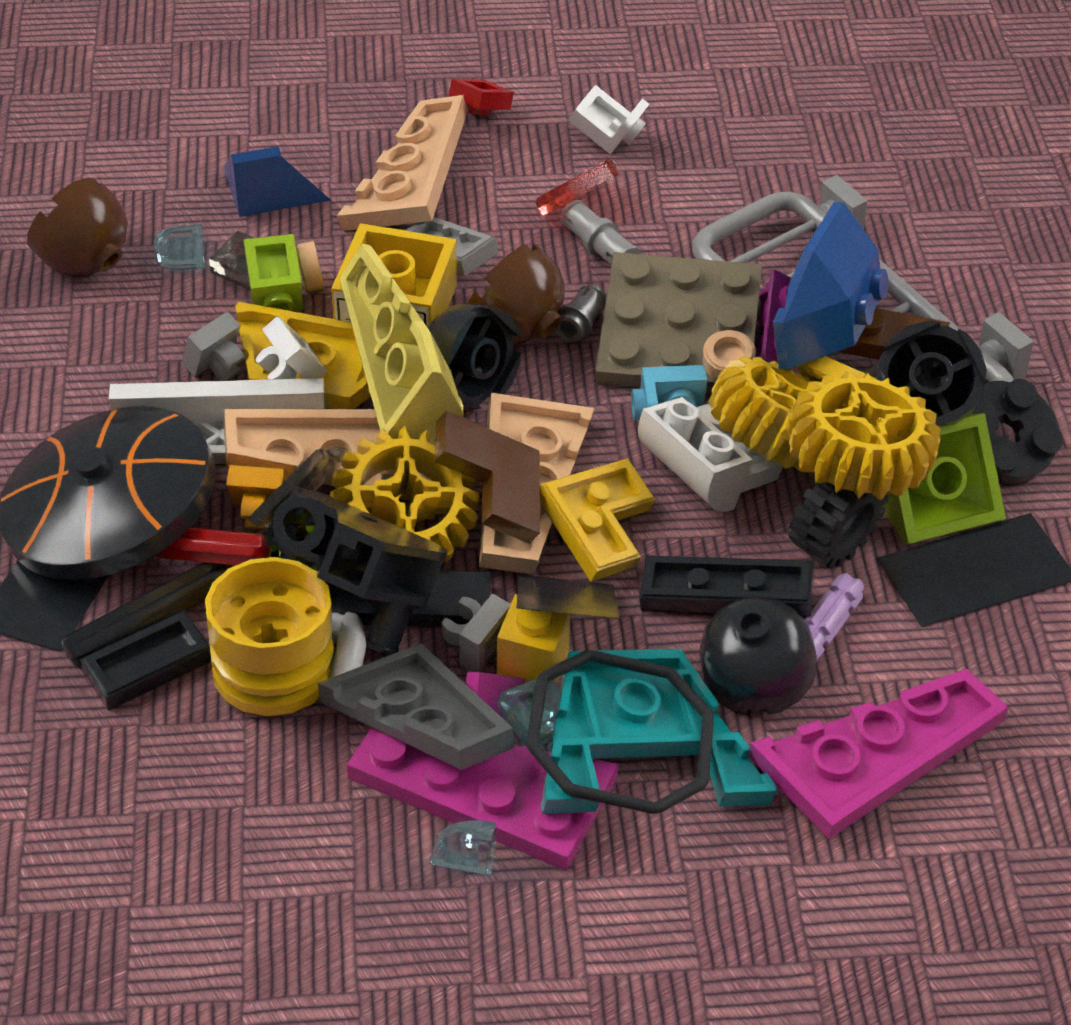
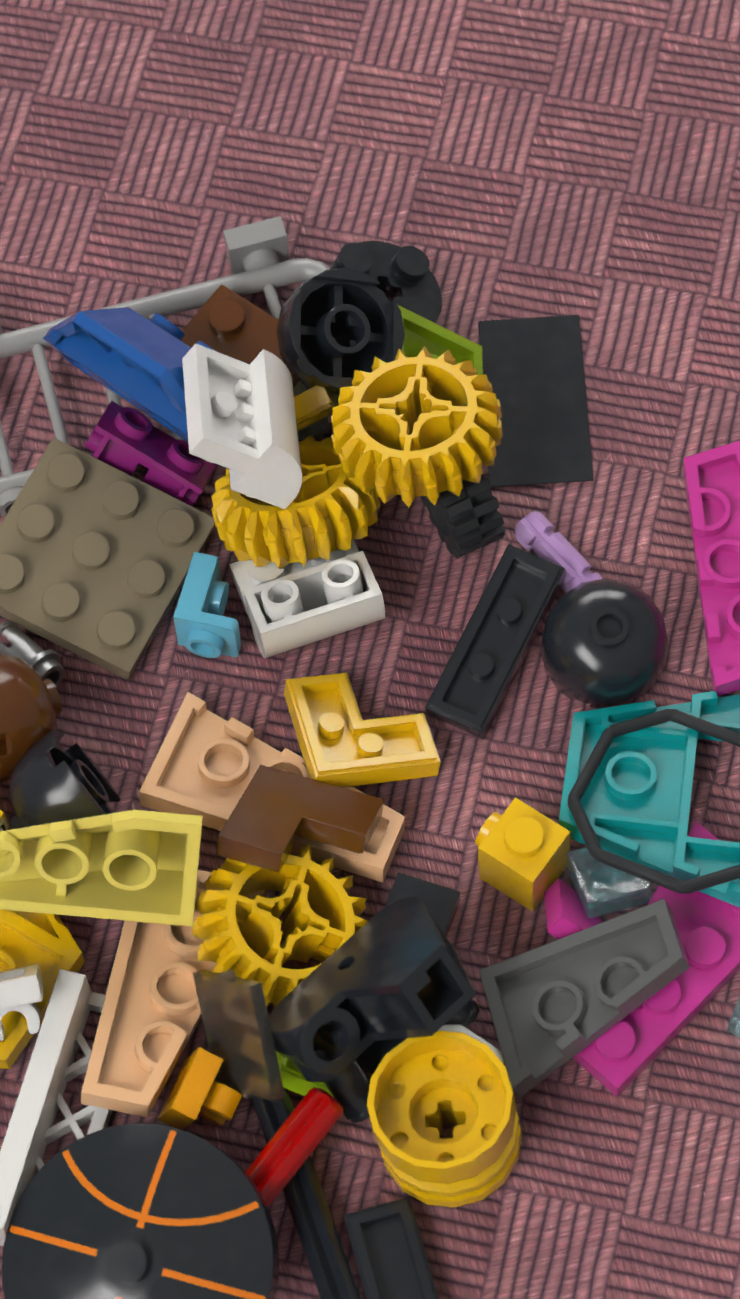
camera: 65 degrees left, 15 degrees up
(479, 636) = (491, 900): light grey tile -> none
(567, 596) = (495, 797): black sticker -> none
(723, 347) = (185, 522): light nougat tile -> none
(800, 319) = (244, 422): none -> white brick

